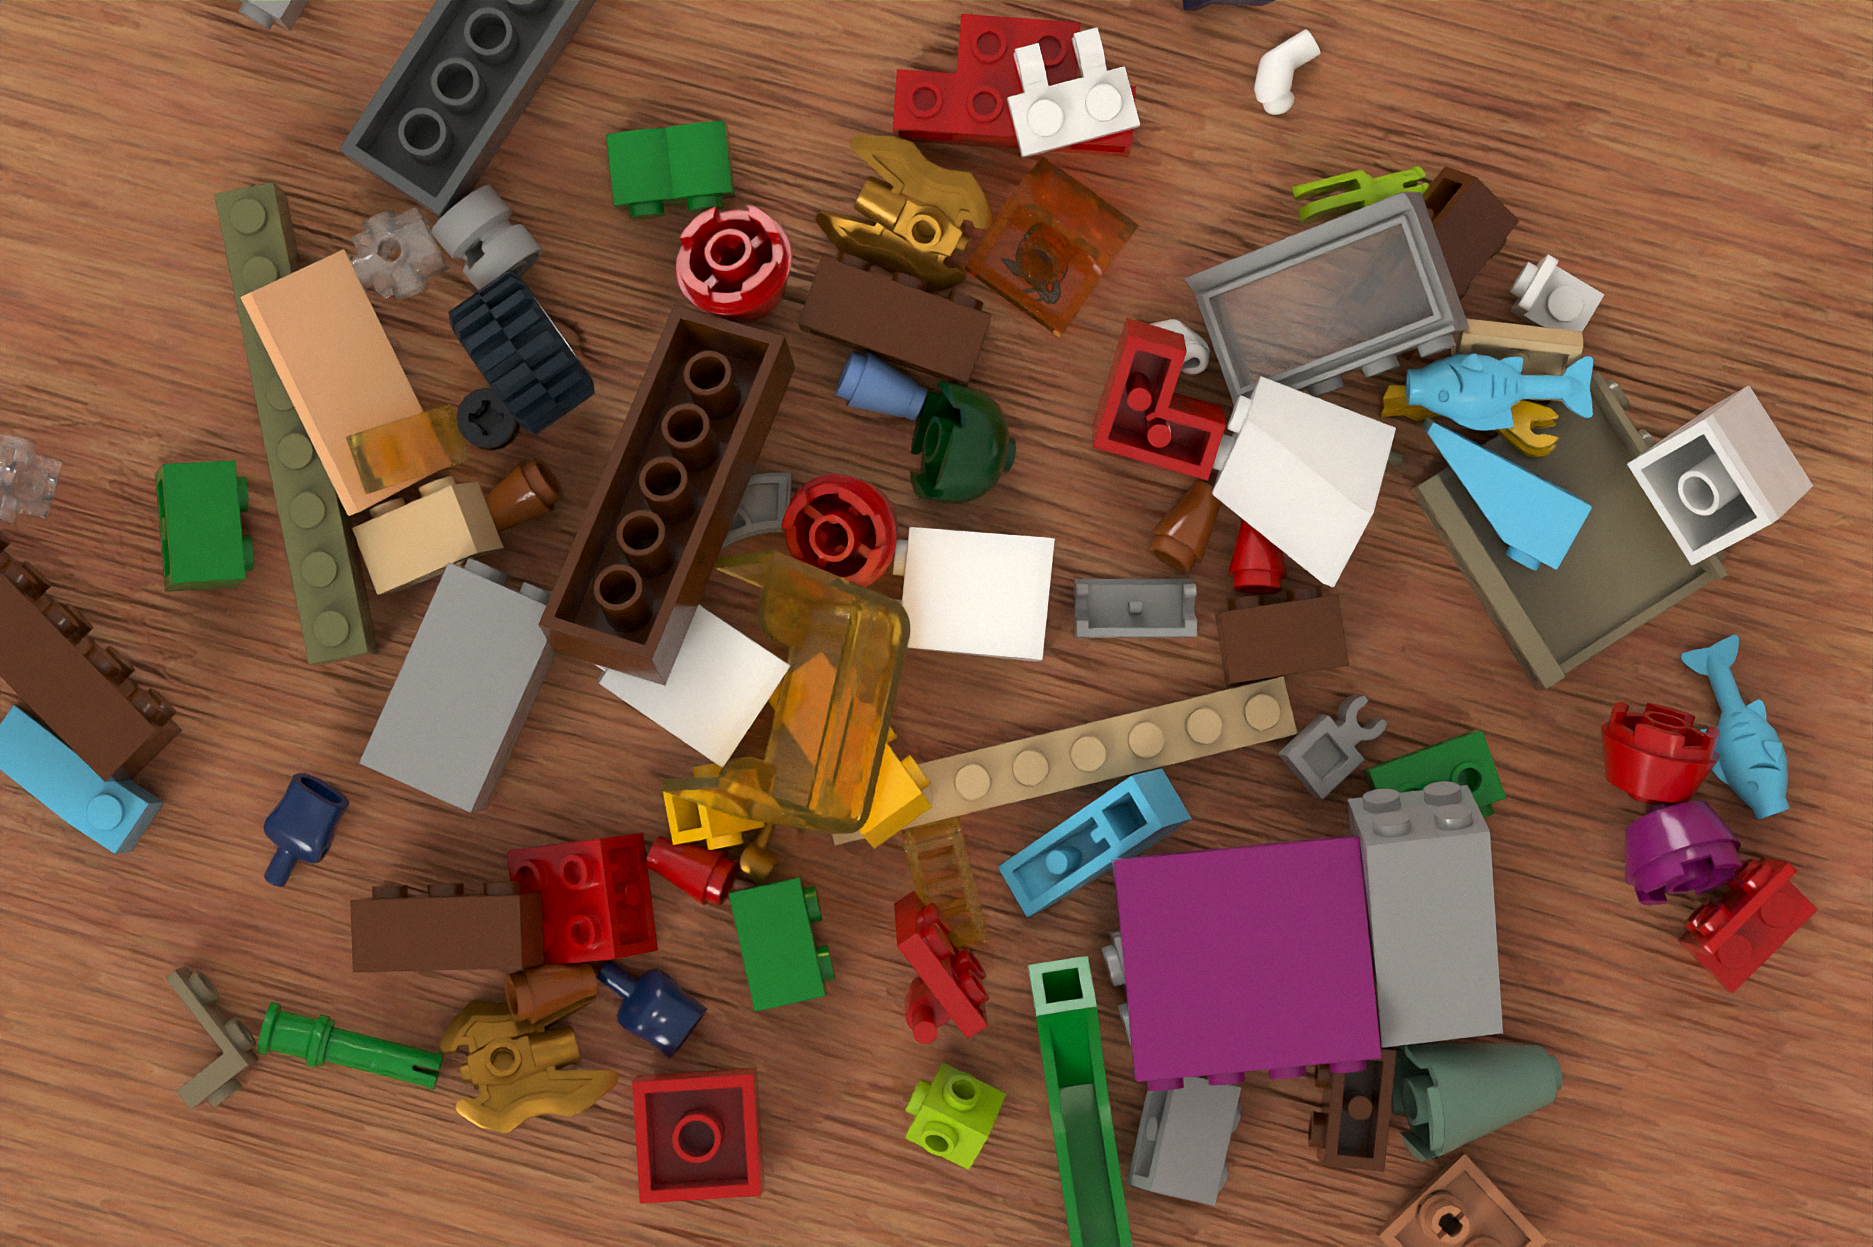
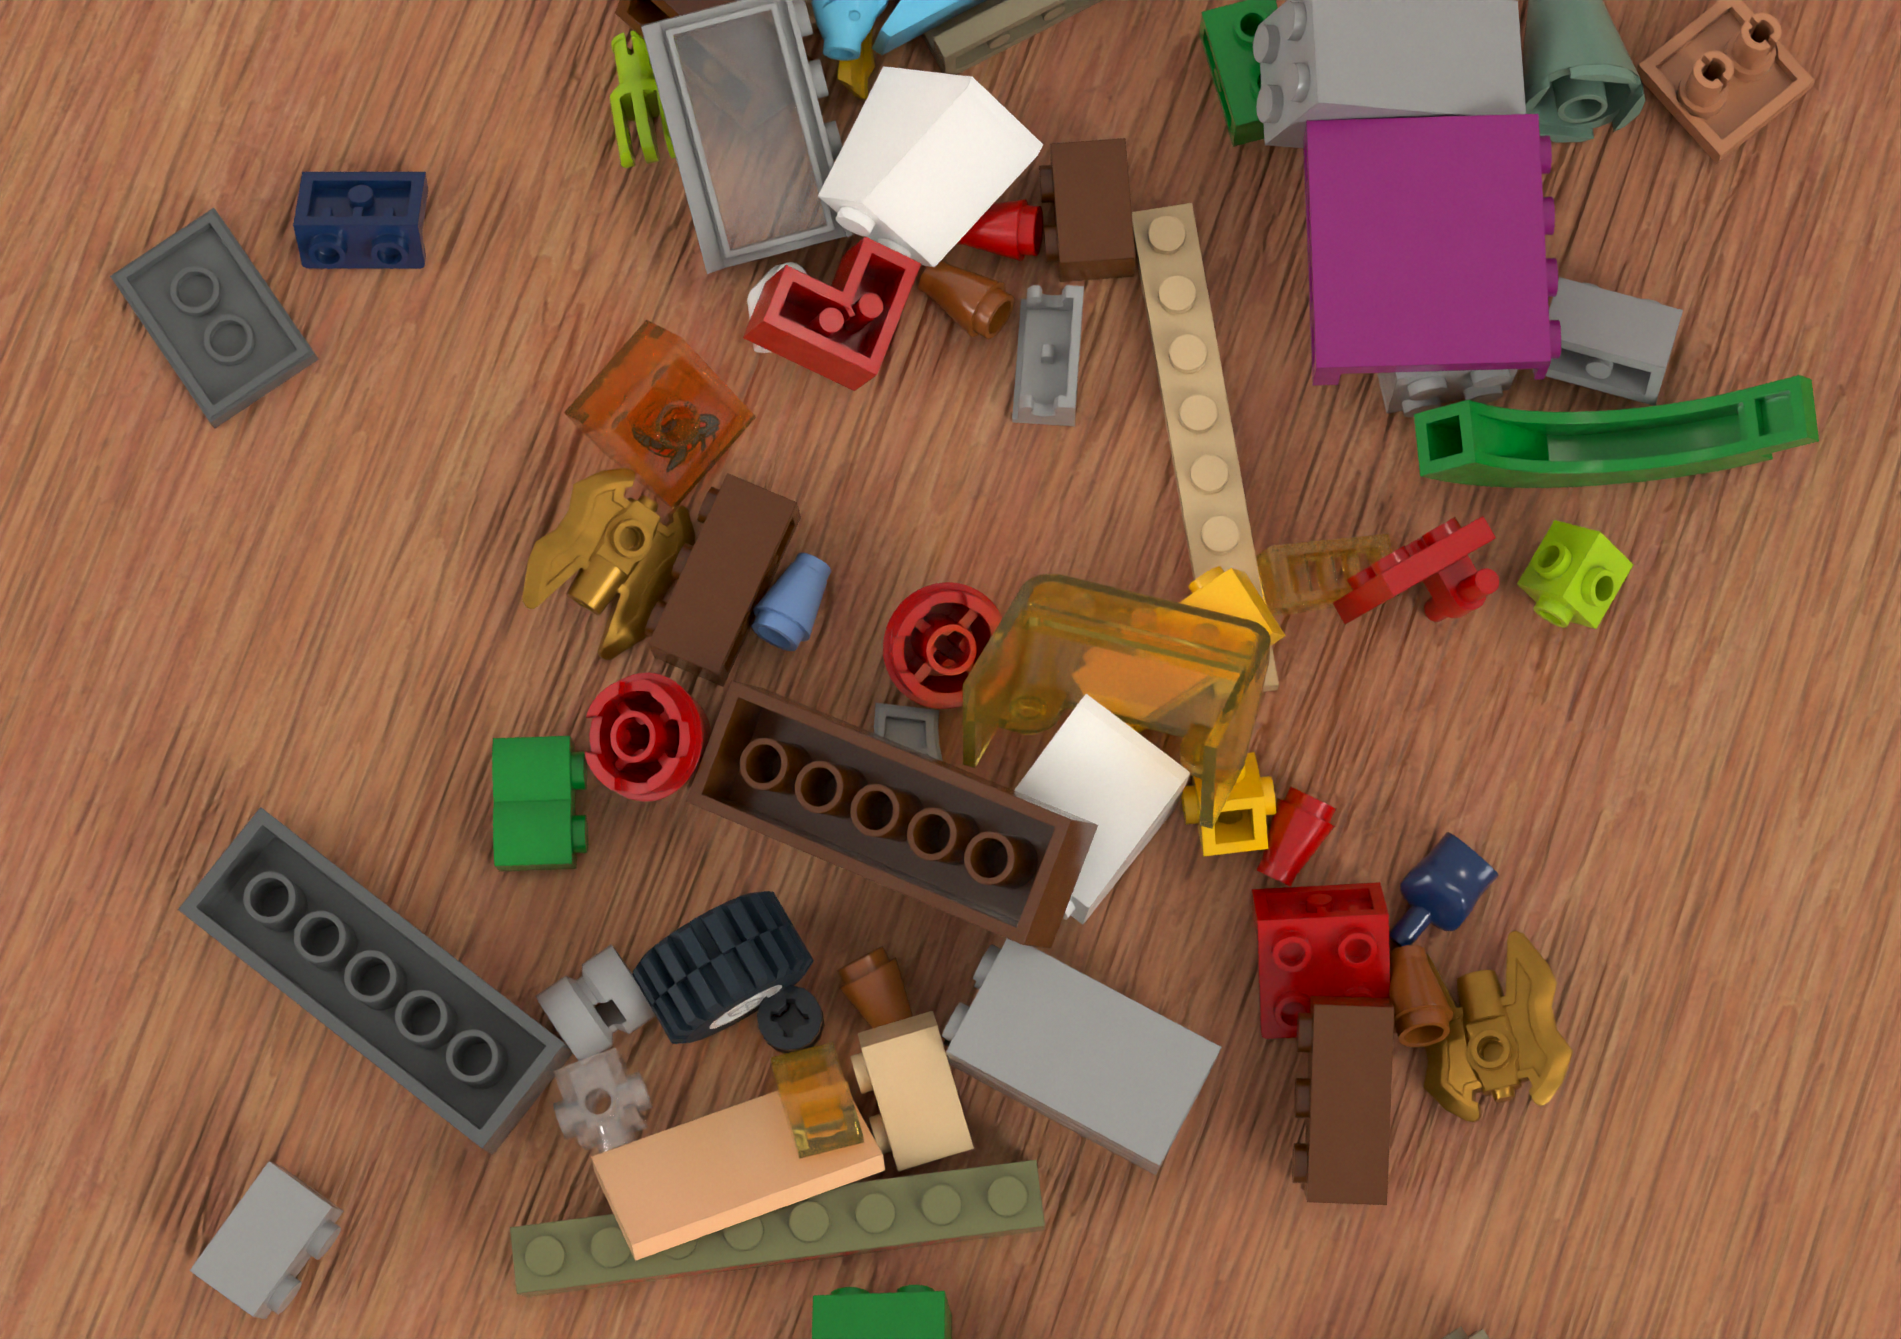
camera: 80 degrees left, 10 degrees down
(303, 825) = (1221, 1256): dark blue piece -> none
(321, 1041) = (1461, 1253): green pin -> none
(698, 1135) = (1583, 843): red brick -> none
(756, 860) = (1289, 770): pearl gold hand -> none
(781, 943) = (1380, 743): green brick -> none
(961, 444) = (861, 521): dark green cylinder -> none
(973, 103) = (490, 437): red piece -> none
(975, 592) = (1020, 503): white slope -> none
(1071, 110) = (521, 366): white plate -> none
(1082, 847) = (1293, 415): medium azure slope -> none
(1277, 70) = (497, 175): white arm -> none
(1325, 749) = (1209, 175): light grey plate -> none
(1354, 1114) = (1597, 167): reddish brown brick -> none

